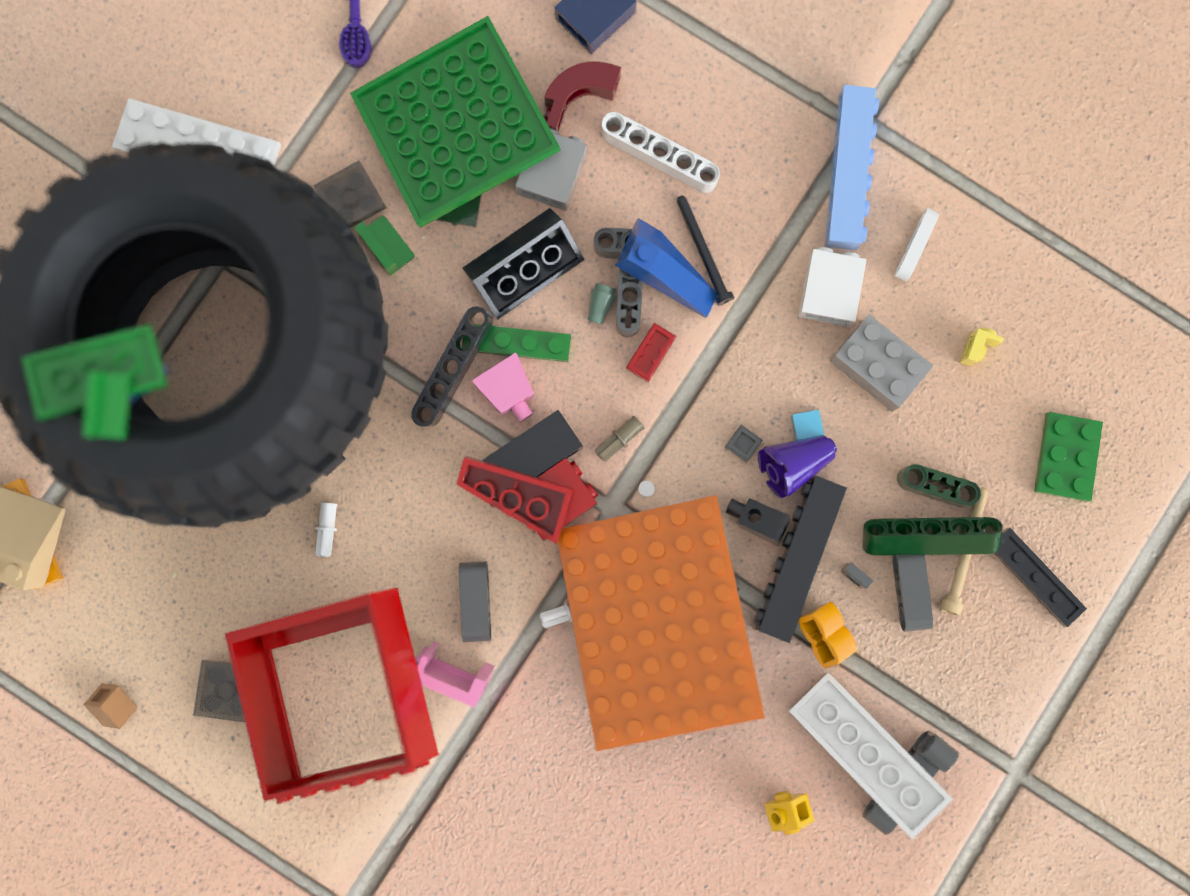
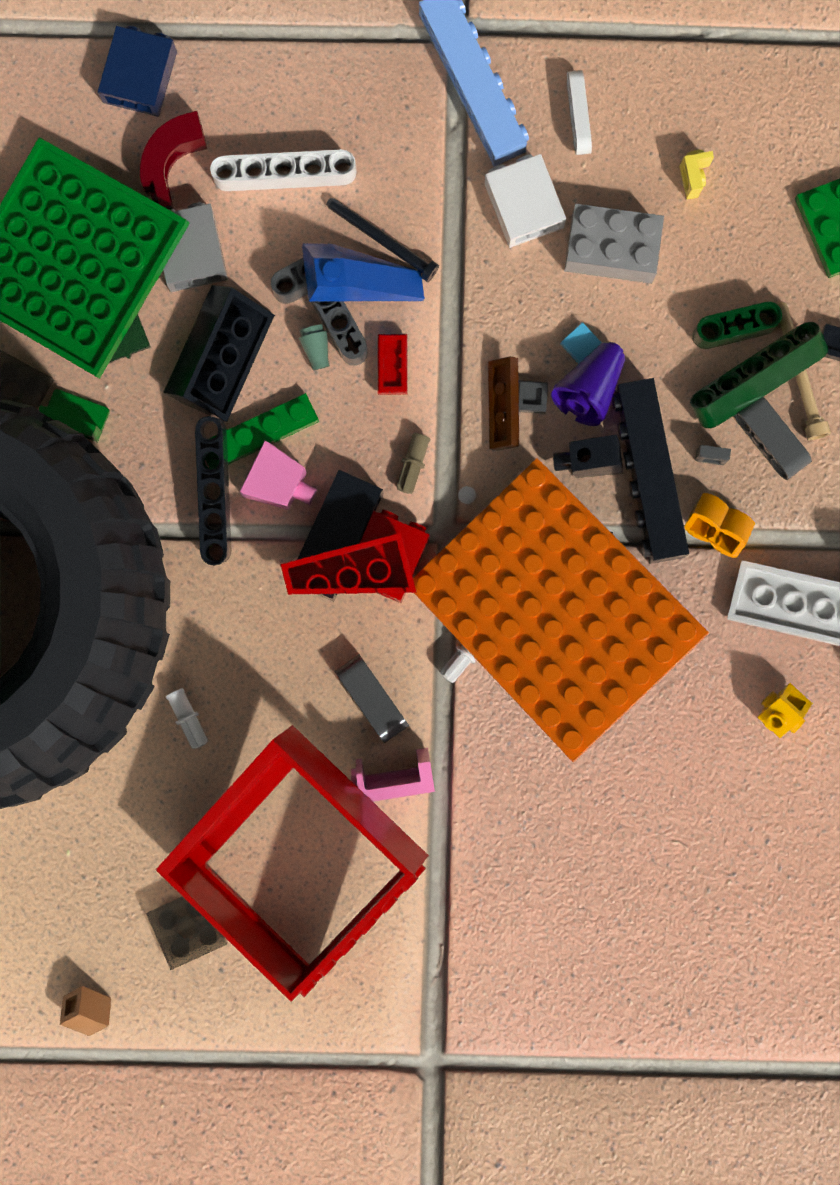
camera: 30 degrees left, 0 degrees up
(718, 435) = (503, 403): none -> reddish brown plate

